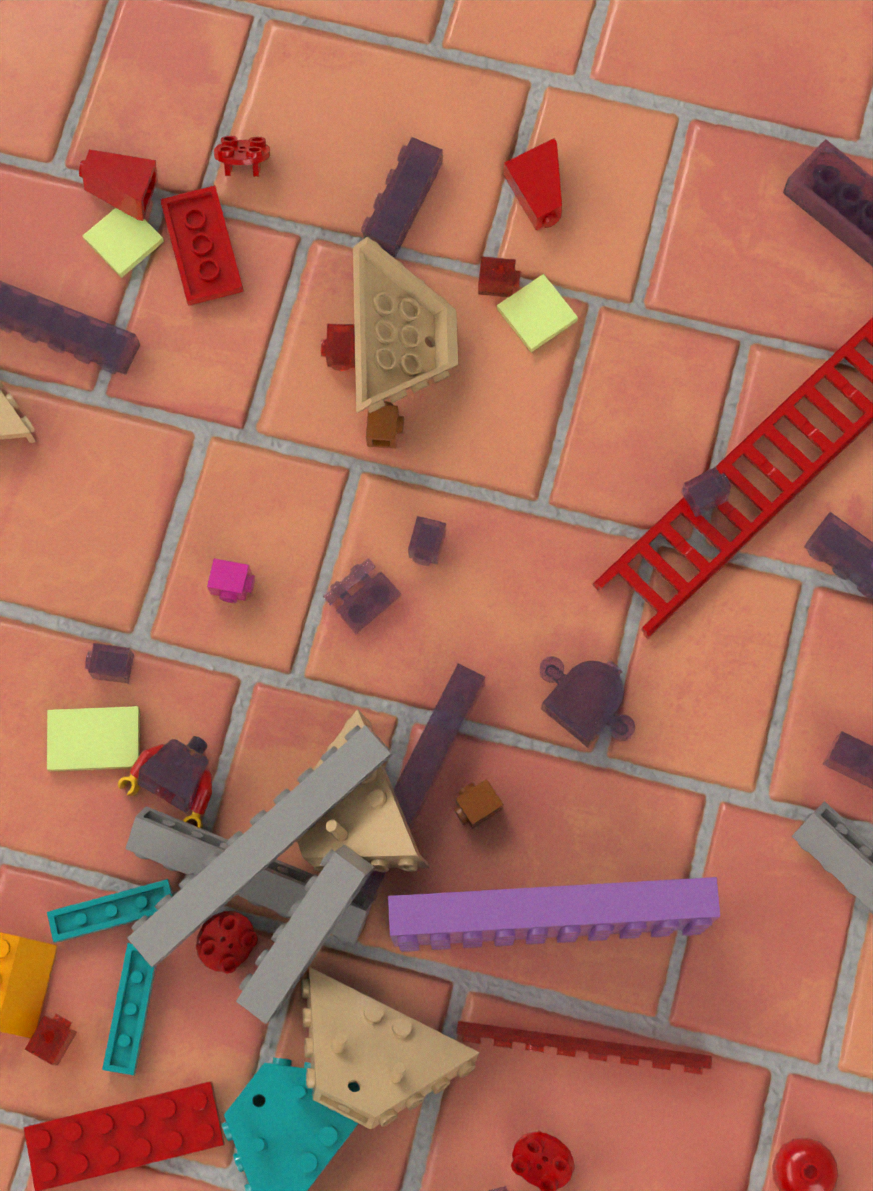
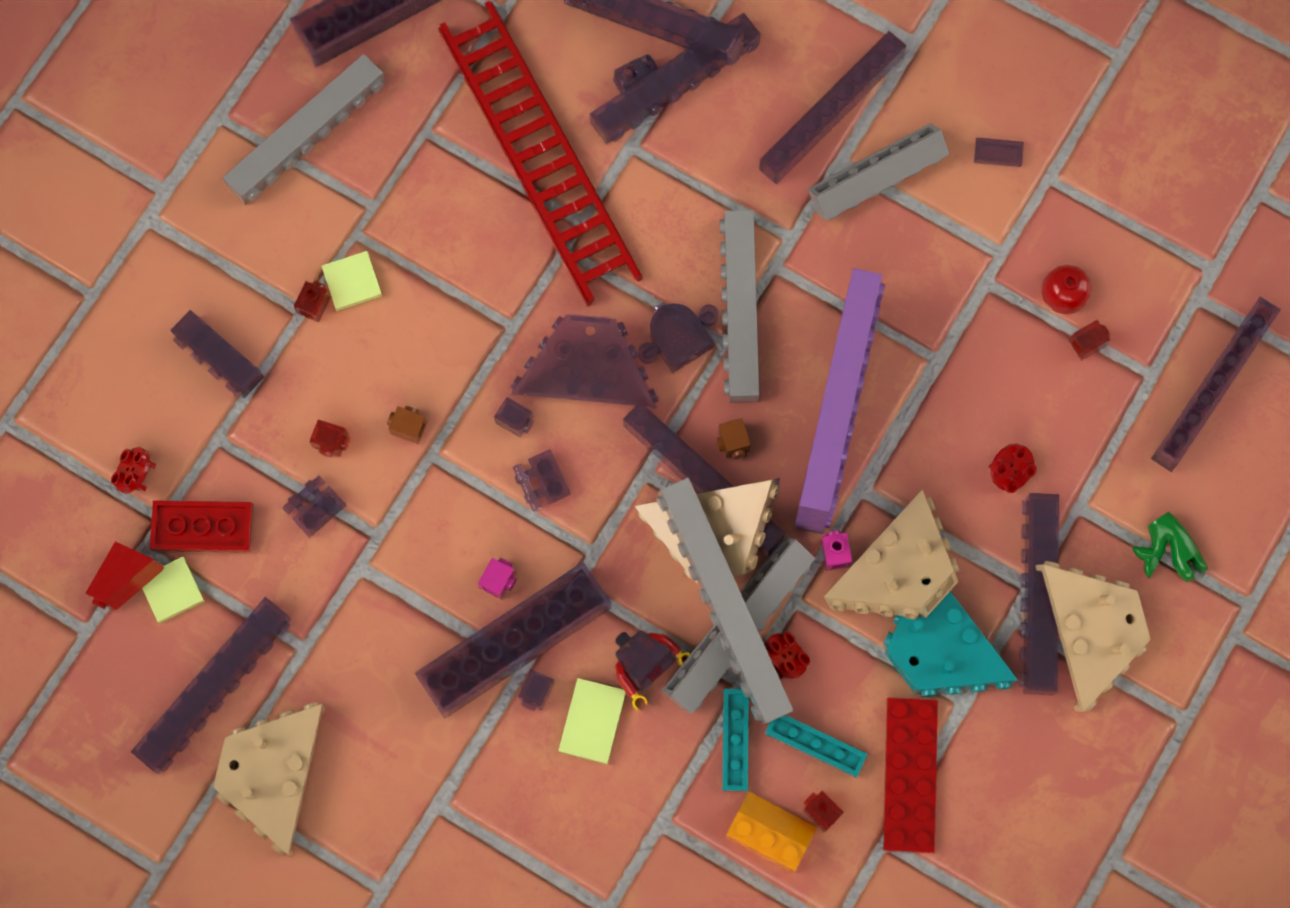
camera: 75 degrees left, 0 degrees up
(160, 620) = (513, 640): none -> brick
(255, 363) = (318, 511): none -> plate
(305, 932) = (800, 588): light grey brick -> none
(374, 966) = (836, 550): none -> dark pink brick
(391, 324) = (324, 388): tan piece -> none
(513, 603) = (586, 365): none -> piece
(537, 184) = (244, 247): red slope -> none
(597, 1049) = (934, 426): clear red plate -> none
(649, 763) = (741, 306): none -> light grey brick
(701, 204) = (304, 129): none -> light grey brick
(706, 491) = (545, 196): clear purple brick -> none

